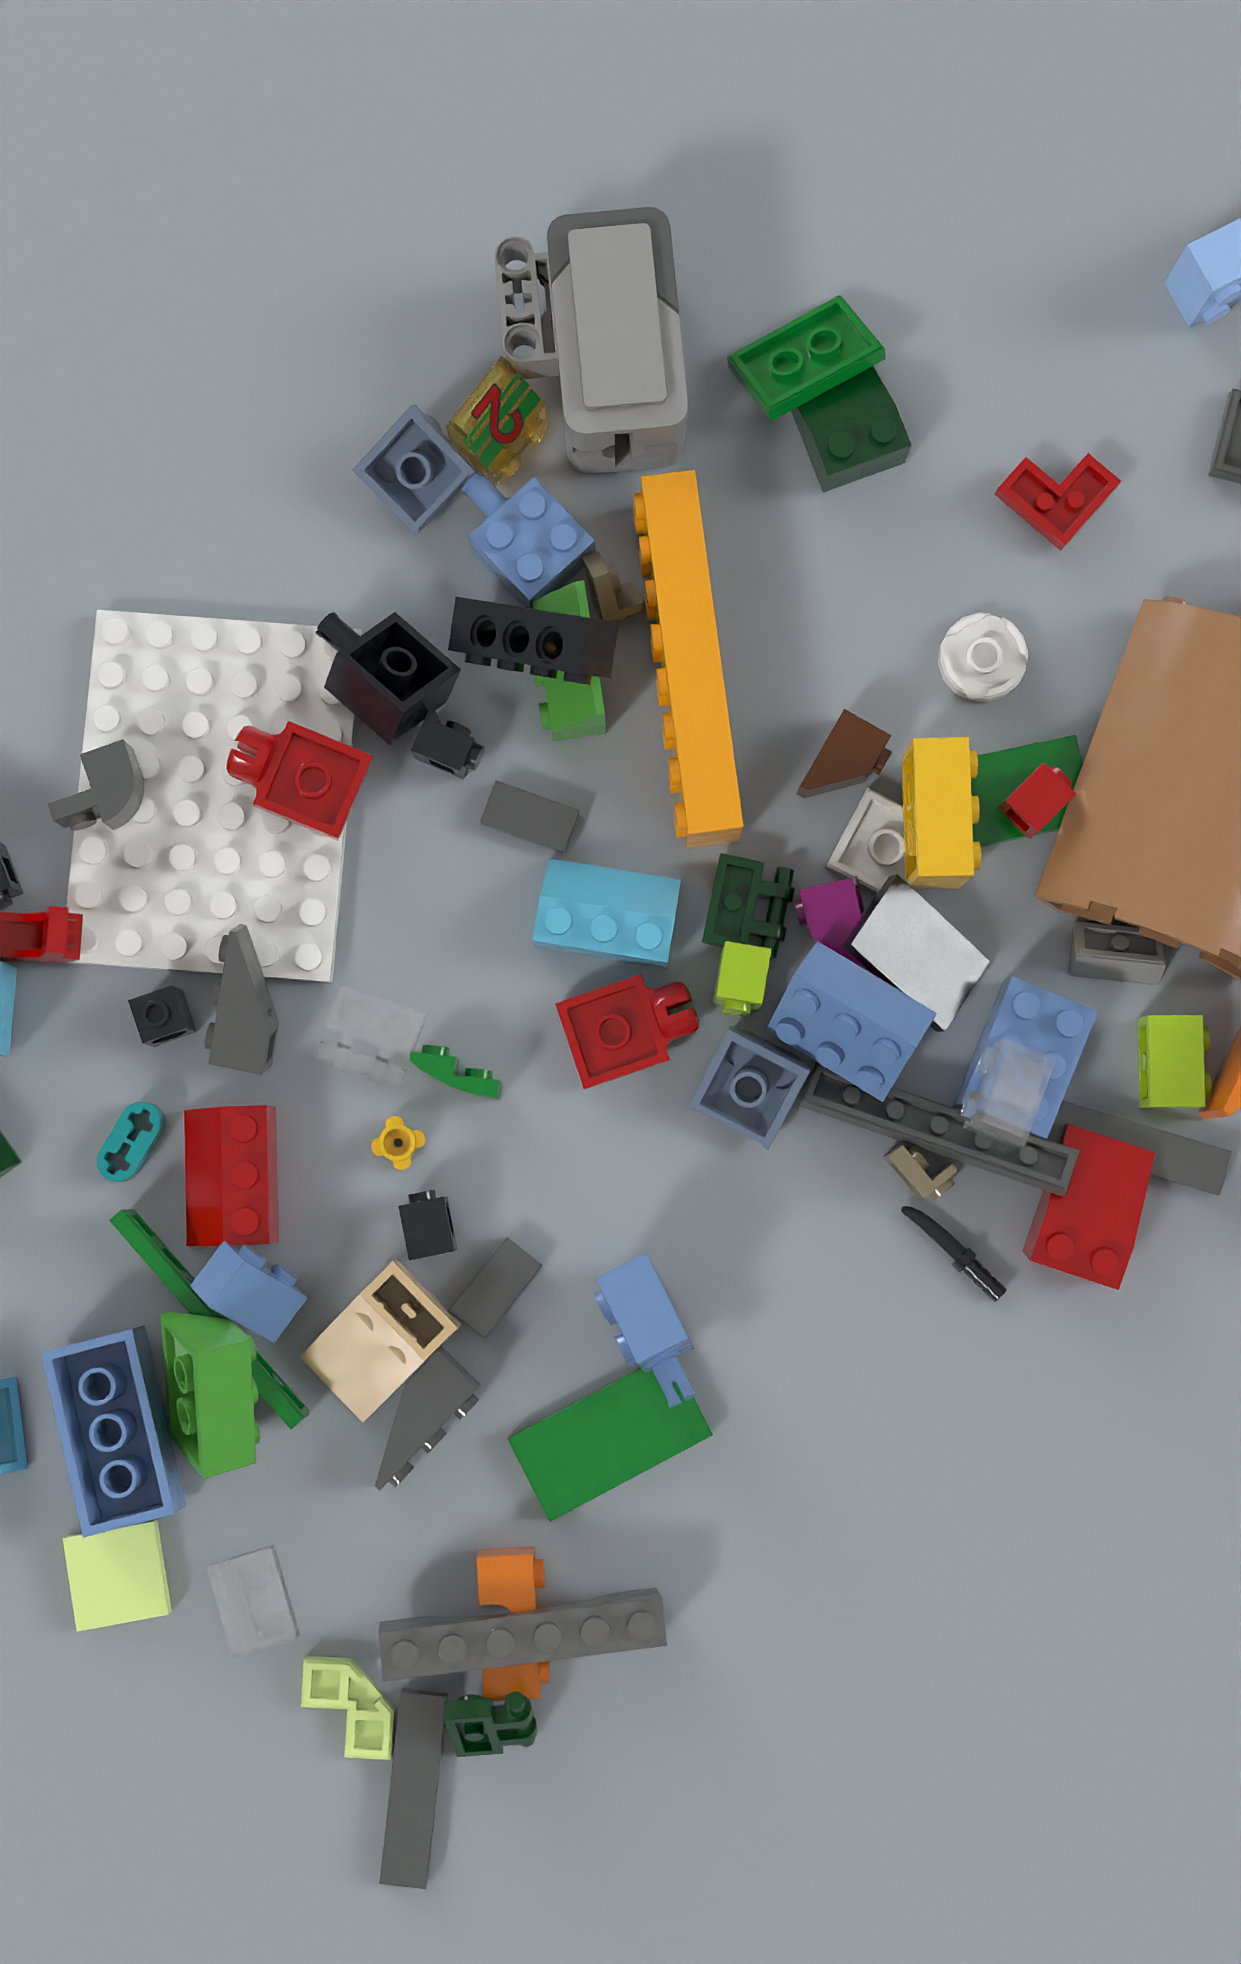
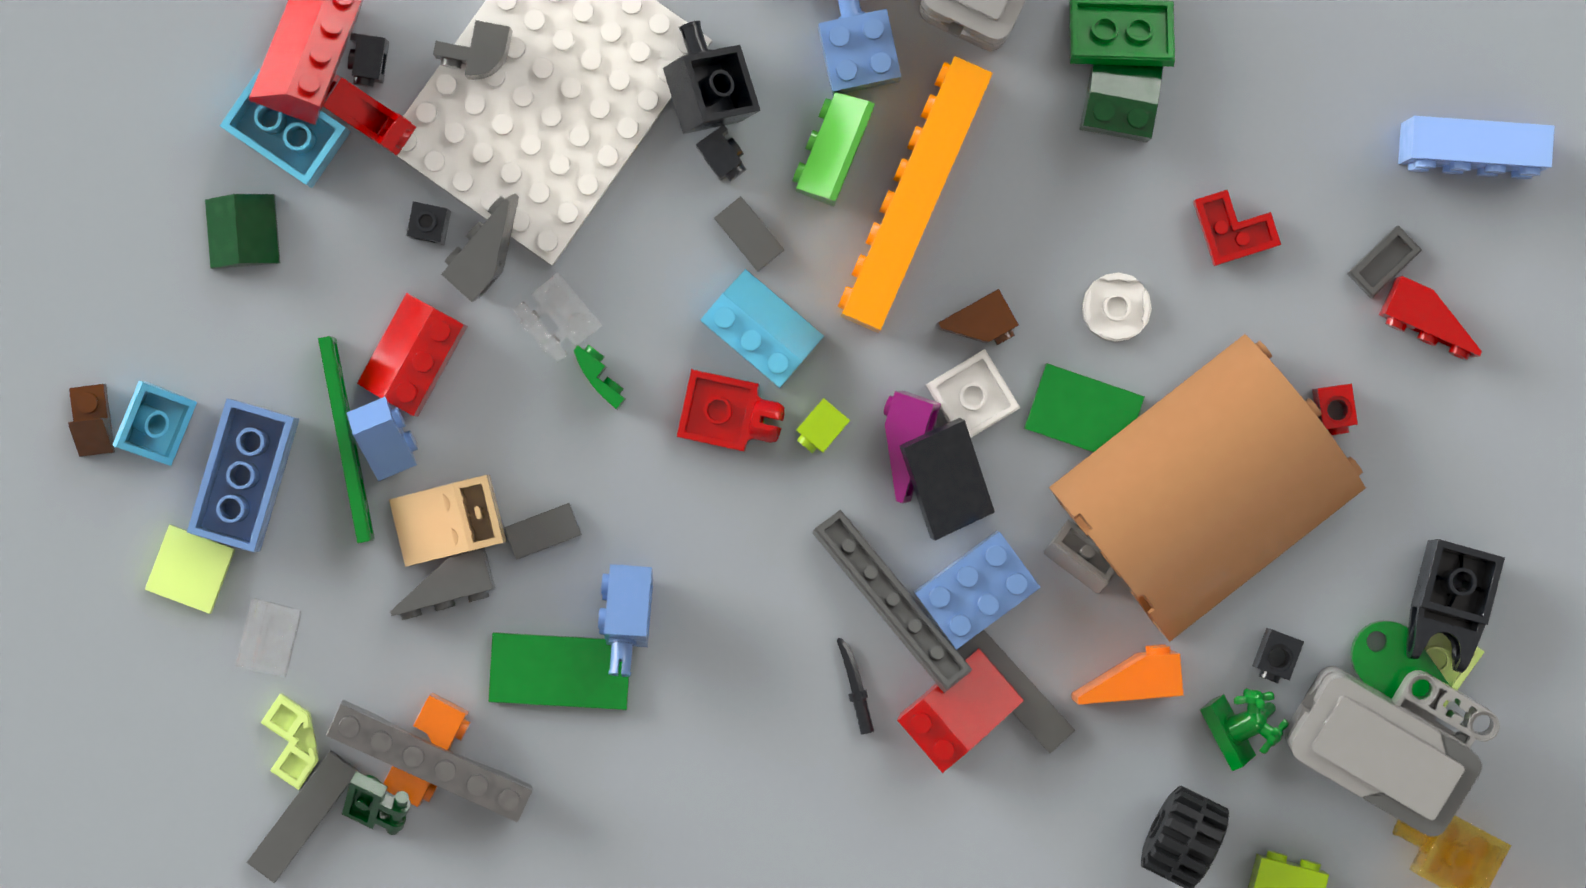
camera: 25 degrees right, 5 degrees up
(122, 1135) = (364, 300): teal beam -> none
(210, 1391) = (320, 487): bright green slope -> none
(300, 775) = (613, 119): red plate -> none
(385, 1145) = (532, 408): yellow plate -> none
(427, 1225) = (522, 464): black brick -> none
(534, 638) = (818, 120): black brick -> none
(609, 597) = (891, 119): dark tan bracket -> none
(734, 903) = (849, 372): dark green plate -> none
(750, 1085) = (786, 499): sand blue slope -> none
(850, 1021) = (875, 497): medium blue brick -> none
(912, 1170) = (859, 617): dark tan bracket -> none
(939, 813) = (1016, 397): yellow brick -> none
(1007, 1093) = (946, 604): clear brick -> none
(1038, 799) = (1090, 425): red brick -> none
(1172, 1061) = (1073, 649): lime brick -> none

